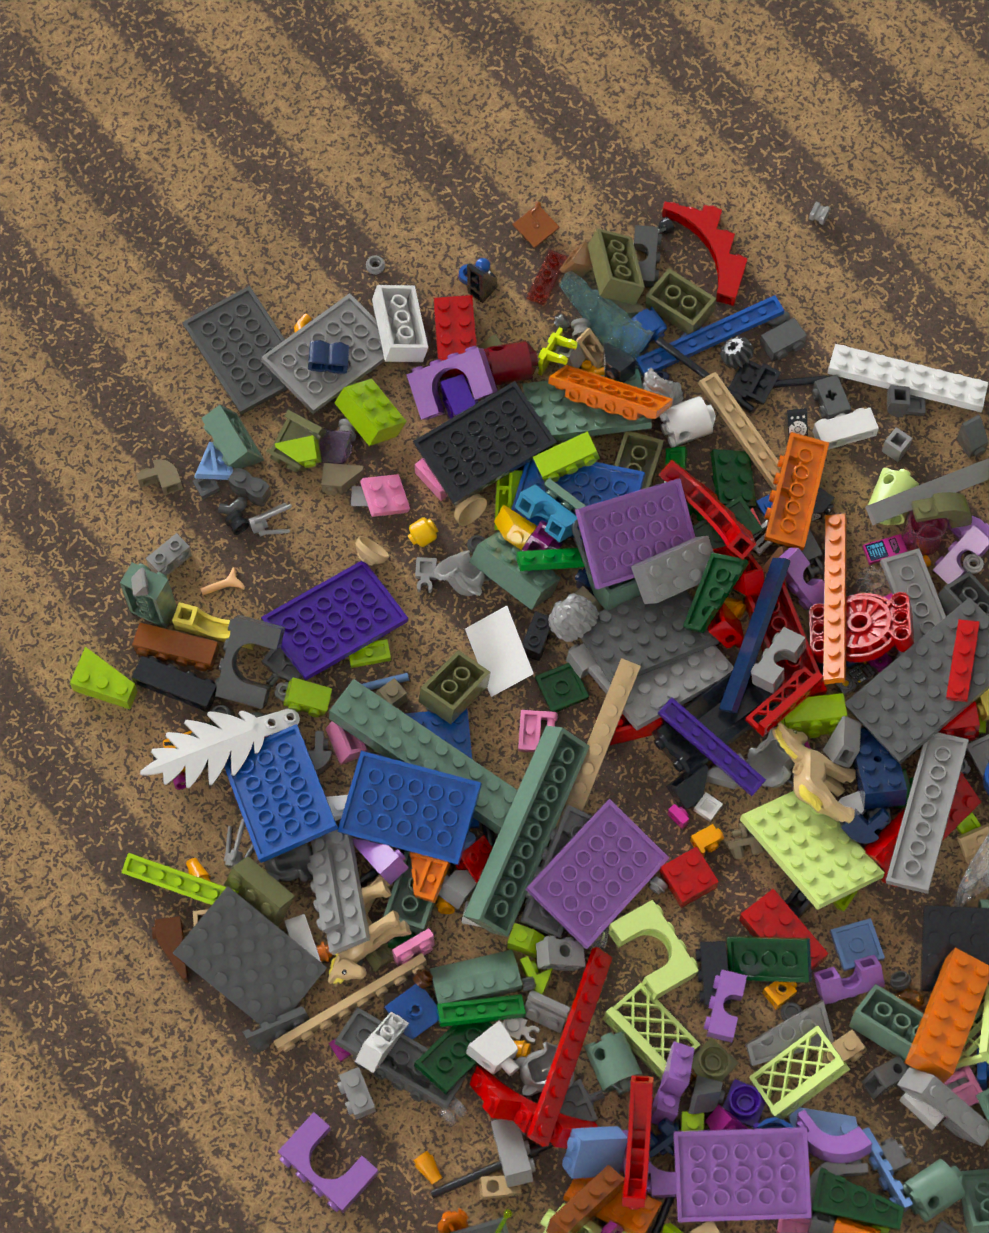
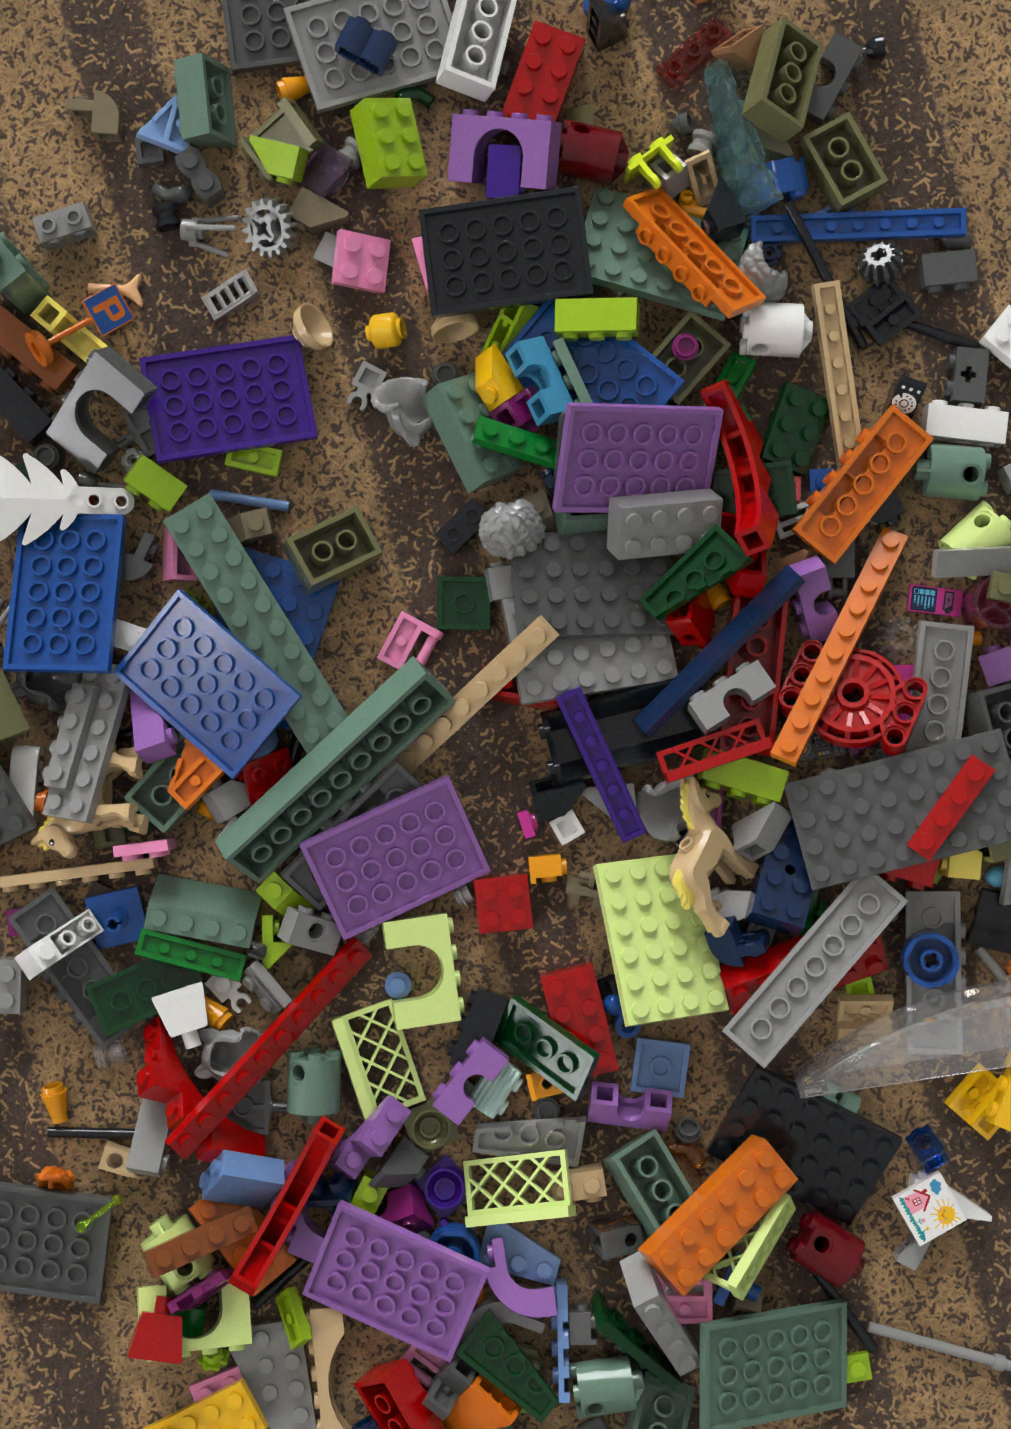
camera: 20 degrees right, 20 degrees up
(223, 600) = (105, 310): none -> orange piece
(290, 403) = (292, 87): none -> light orange cone
(299, 551) = (244, 299): none -> light grey slope
(319, 494) = (269, 227): none -> light grey gear
(376, 376) = (416, 93): none -> dark green arm
(423, 978) = (141, 887): reddish brown plate -> none
(499, 650) = (409, 525): white sticker -> none
(634, 453) = (685, 347): none -> magenta plate
(640, 970) = (398, 985): none -> medium blue plate
(718, 242) = (931, 102): red arch -> none
(747, 1011) = (491, 1096): none -> light aqua brick
(804, 914) = (613, 1007): none -> blue plate
(846, 460) = (943, 470): none -> sand green cylinder
(933, 1149) = (631, 1341): none -> dark green wing

